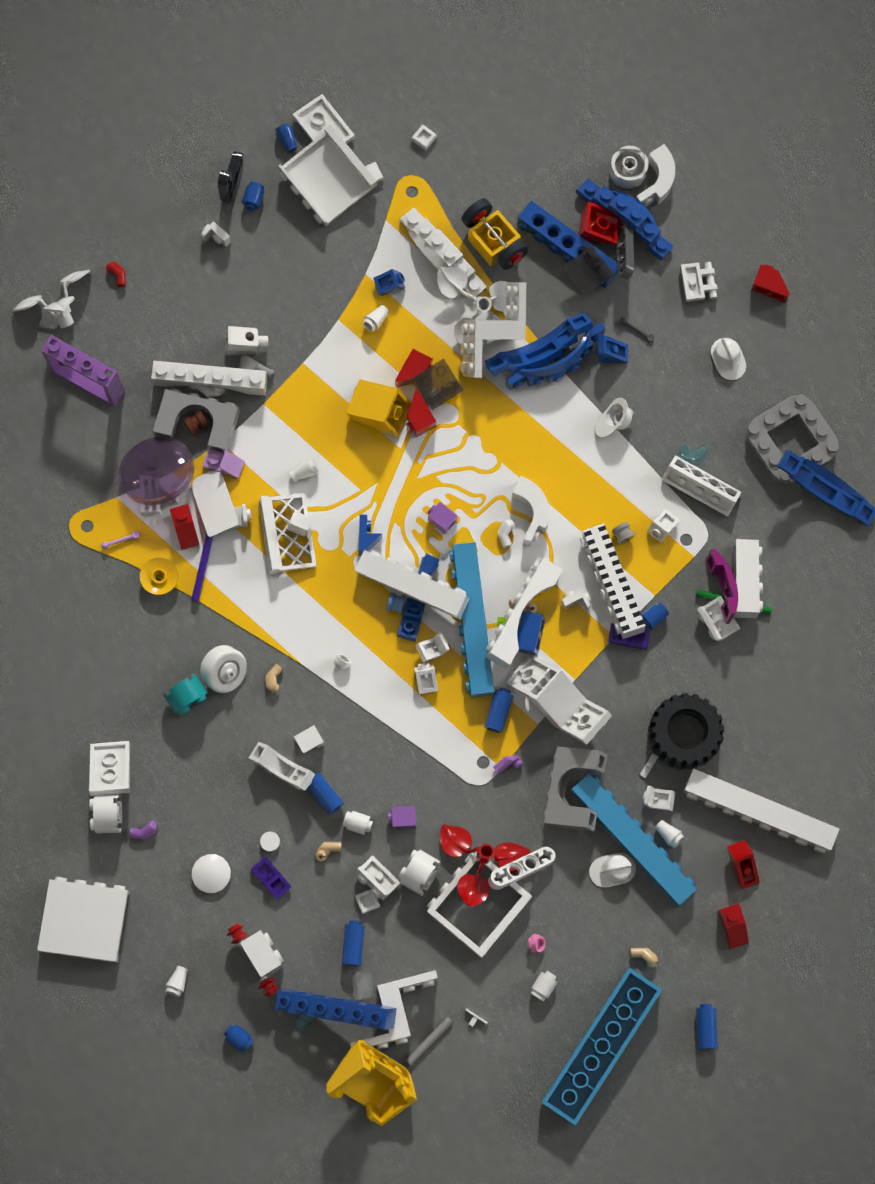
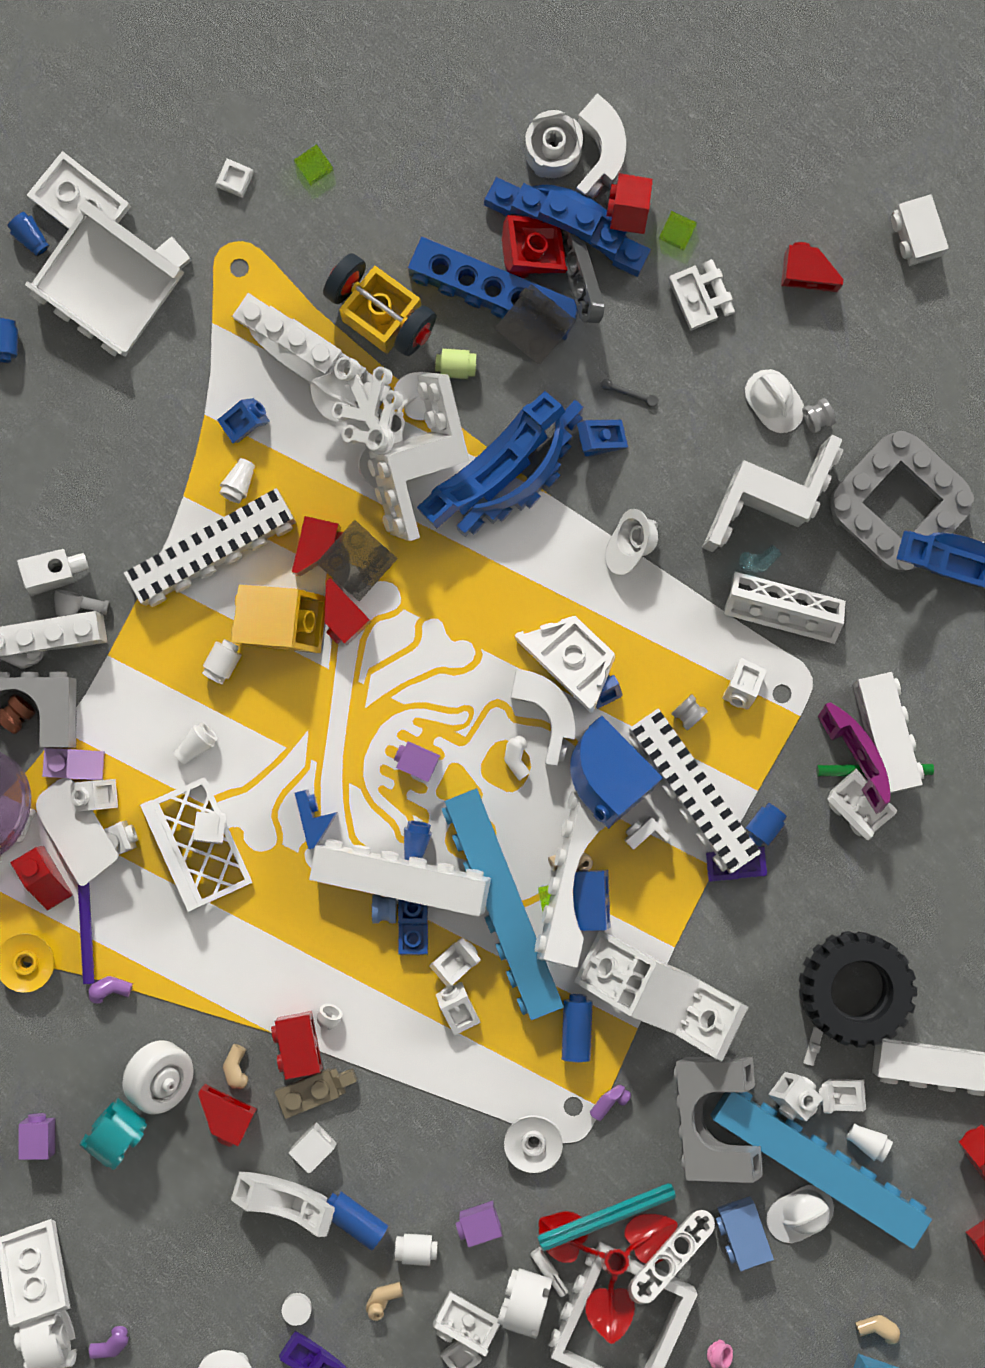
camera: 15 degrees left, 10 degrees up
(135, 686) = (36, 1137): none -> medium lavender brick
(206, 605) = (108, 985): none -> medium lavender arm
(232, 484) = (94, 795): none -> white bracket
(260, 706) = (225, 1115): none -> red slope
(317, 673) = (297, 1045): none -> red brick
(319, 706) = (313, 1091): none -> dark tan hinge
(335, 424) = (221, 661): none -> white brick
(347, 354) = (210, 547): none -> white brick
(437, 854) = (548, 1270): none -> white piece
(441, 775) = (529, 1156): none -> white dish
(474, 308) = (380, 436): none -> white plant
(475, 142) = (313, 165): none -> clear neon green tile
(486, 834) = (606, 1217): none -> teal axle
(534, 283) = (456, 363): none -> yellowish green brick
(557, 478) = (571, 657): none -> white wing
(563, 554) = (610, 773): none -> blue brick
(573, 505) = (610, 691): none -> blue tile
(573, 869) = (745, 1234): none -> medium blue brick
(629, 790) = (796, 1096): none -> white brick
(667, 214) = (630, 203): none -> red brick
(693, 239) = (677, 230): none -> clear neon green tile
(710, 412) = (774, 494): none -> white bracket
(753, 373) = (819, 415): none -> light grey wheel
(846, 278) = (919, 230): none -> white brick

